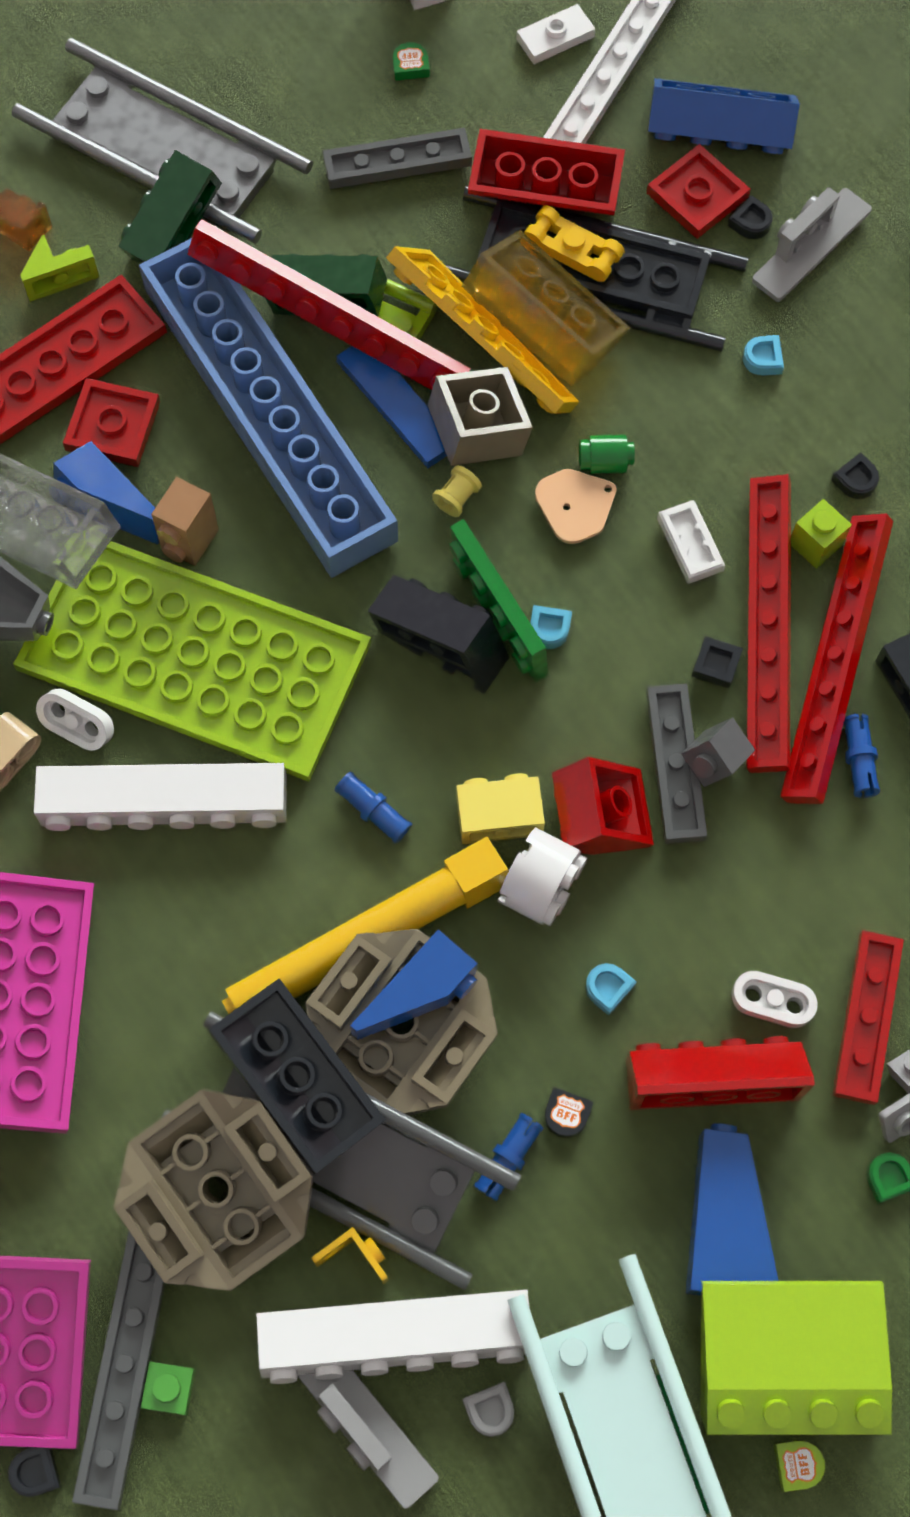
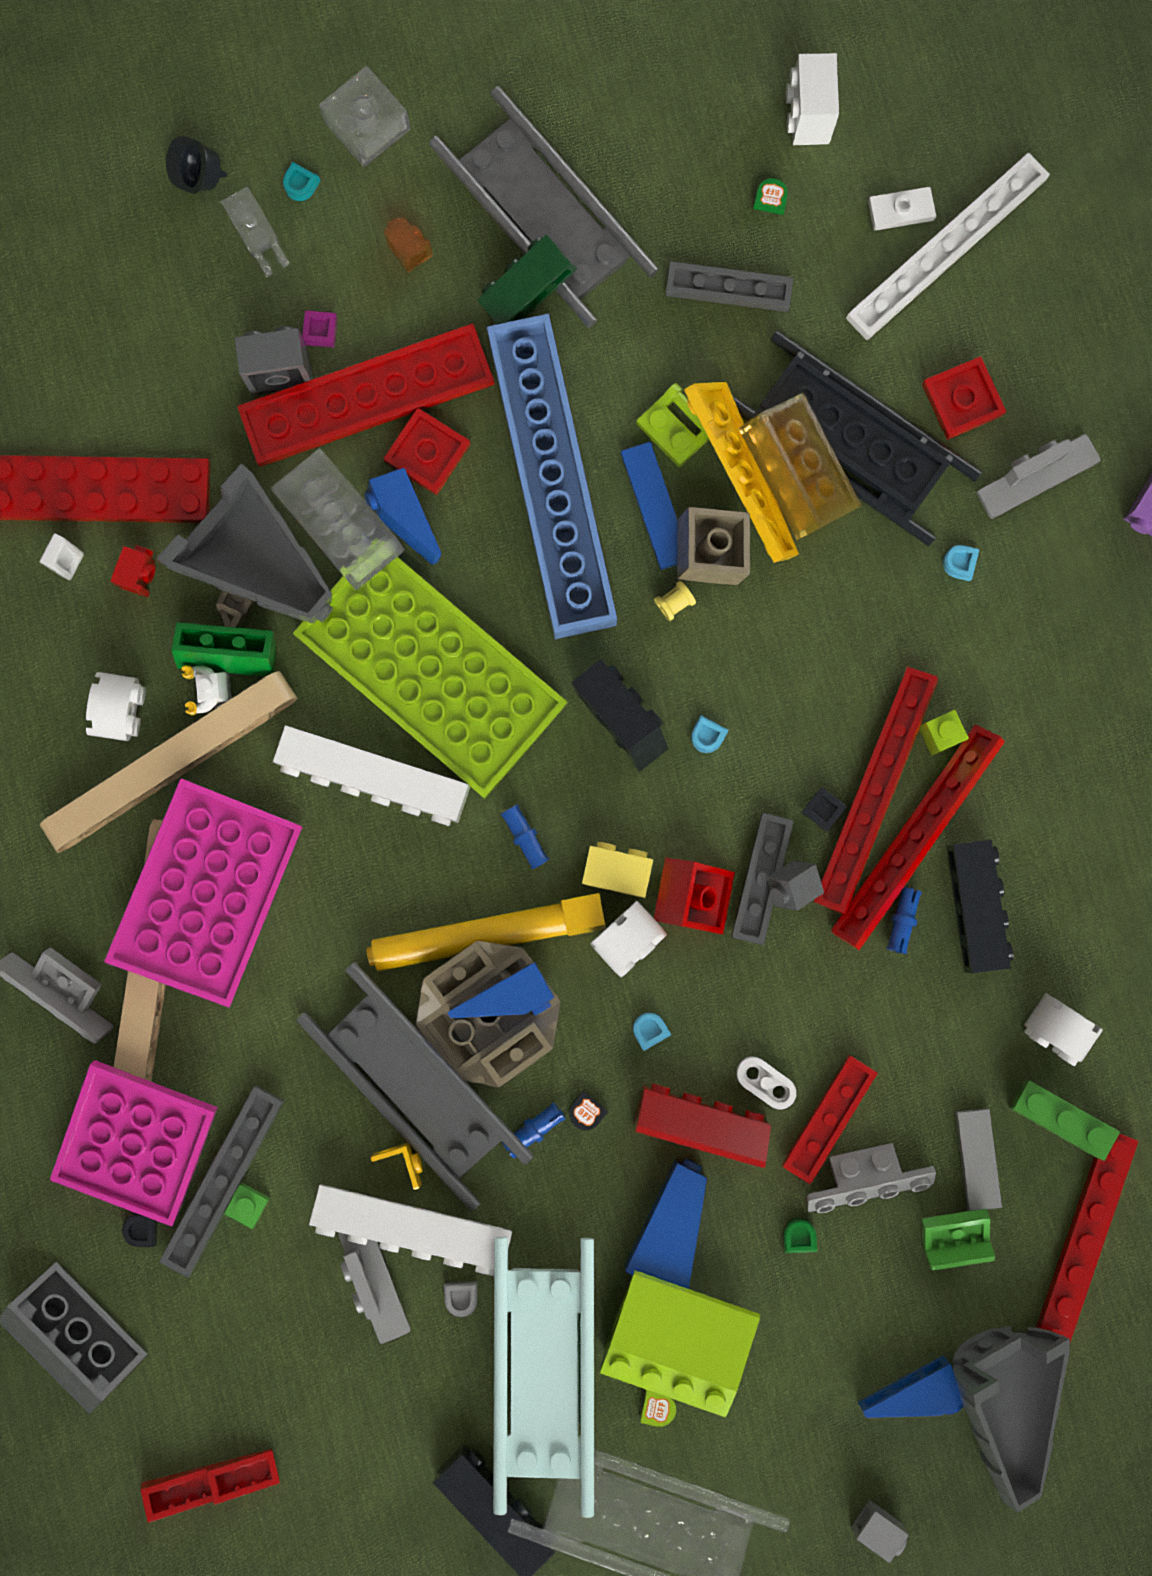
camera: 20 degrees right, 15 degrees up
(50, 274) = (415, 303): lime slope -> none
(76, 721) = (326, 692): white plate -> none
(169, 1201) = (293, 1110): dark tan piece -> none
(185, 522) = (455, 562): medium nougat brick -> none
(296, 1076) = (397, 1034): black slope -> none
(320, 306) = (620, 414): red plate -> none
(351, 277) = (631, 388): dark green brick -> none
(493, 594) = (668, 698): green plate -> none
(546, 171) = (843, 347): red slope -> none
(574, 244) = (842, 419): yellow plate -> none
(586, 501) = (772, 638): light nougat piece -> none
(606, 454) = (802, 608): green brick -> none
(691, 541) = (841, 703): white plate -> none
(723, 115) = (1012, 333): blue slope -> none
(751, 219) = (998, 436): black tile -> none
(857, 477) = (993, 692): black tile -> none

